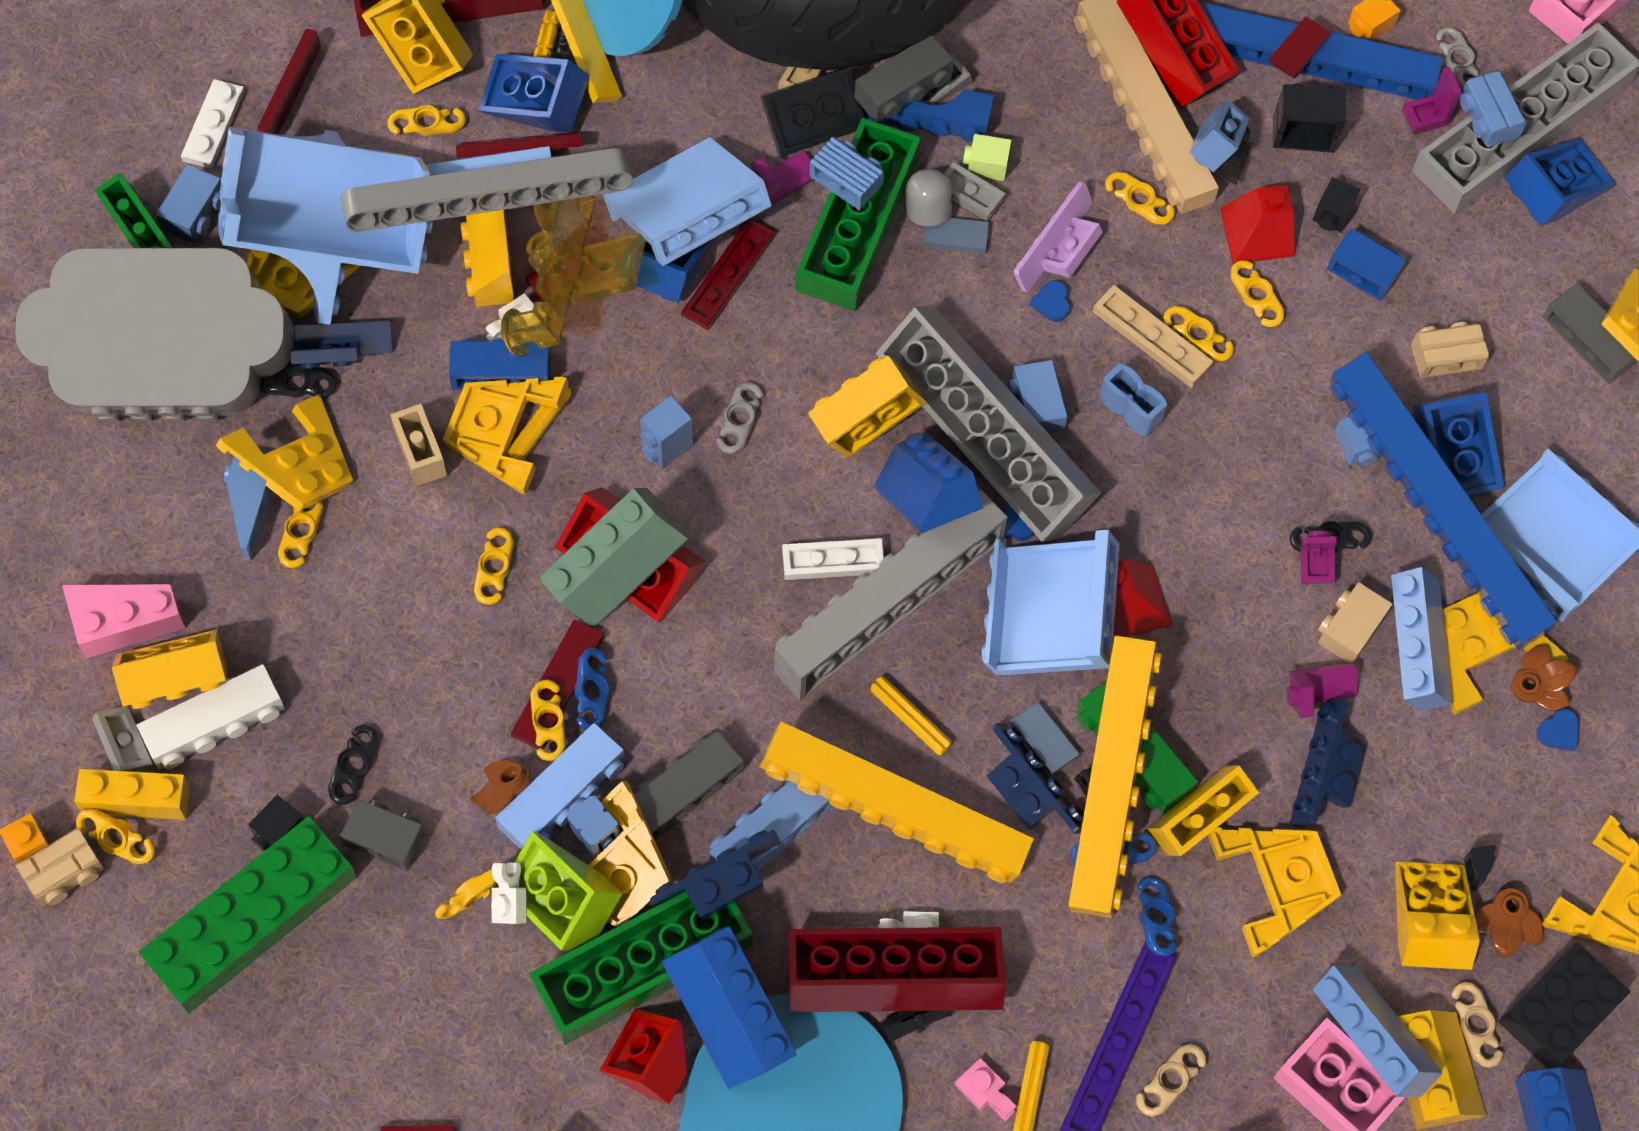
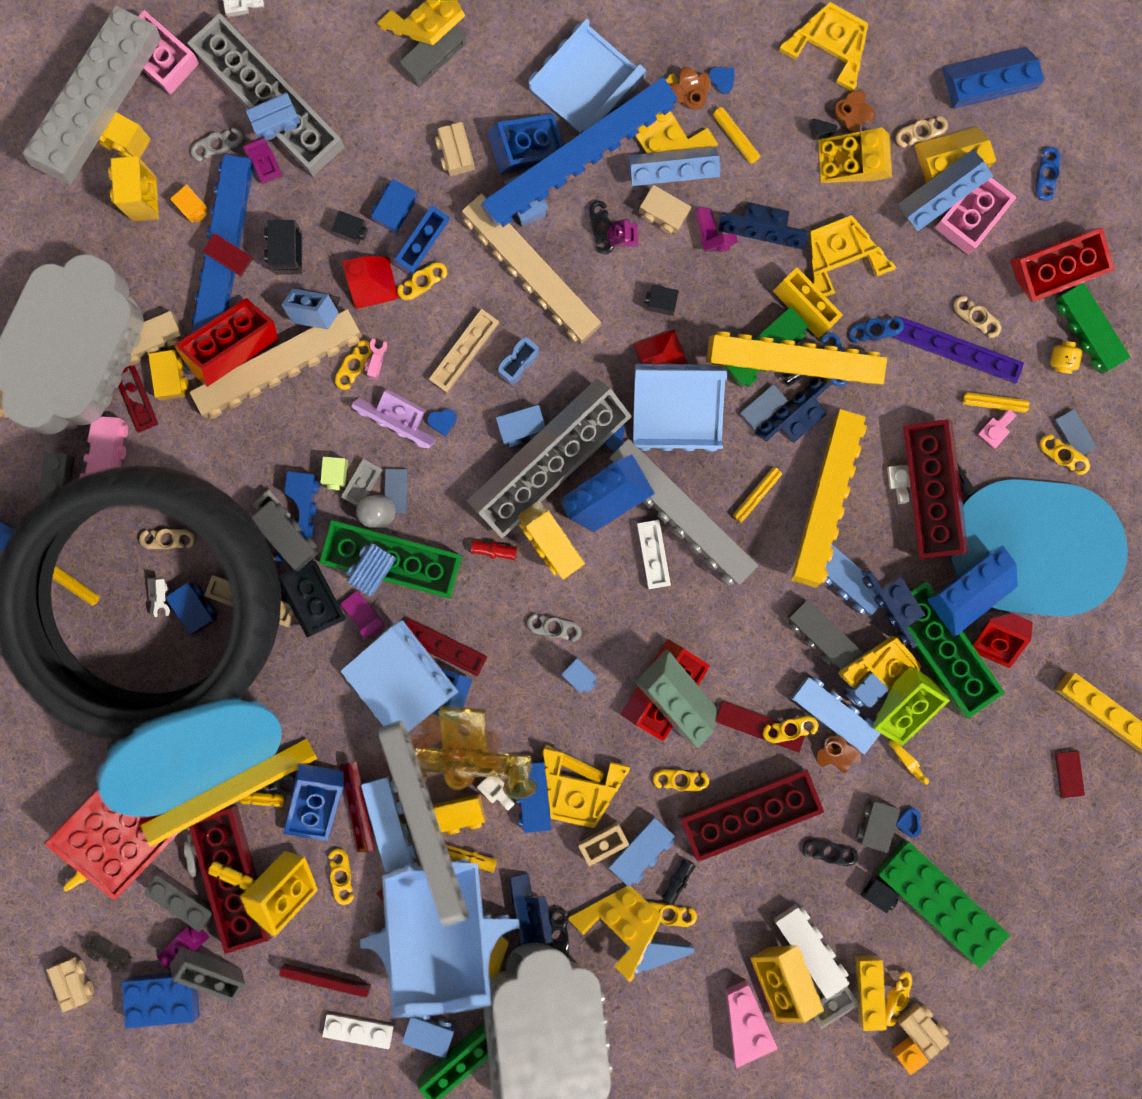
camera: 95 degrees left, 20 degrees up
(337, 541) = (679, 881): none -> black pin
(379, 886) = (909, 822): none -> blue tile
(398, 499) = (642, 851): none -> medium blue brick
(424, 281) = (484, 863): none -> yellow pin
(429, 650) = (751, 814): none -> dark red brick
(508, 899) = (914, 739): white plate -> none
(586, 673) = (756, 709): blue piece -> none
(860, 347) = (494, 550): none -> red pin
(1141, 221) = (374, 364): none -> bright pink plate
(1193, 321) = (447, 325): yellow piece -> none
(1216, 606) = (662, 300): none -> black brick
(1254, 441) = (534, 272): none -> tan brick
(1314, 290) = (421, 240): none -> blue brick
(1470, 741) = (736, 135): none -> yellow axle
(1558, 180) = (313, 73): blue slope -> none
(1564, 1007) = (908, 77): black brick -> none

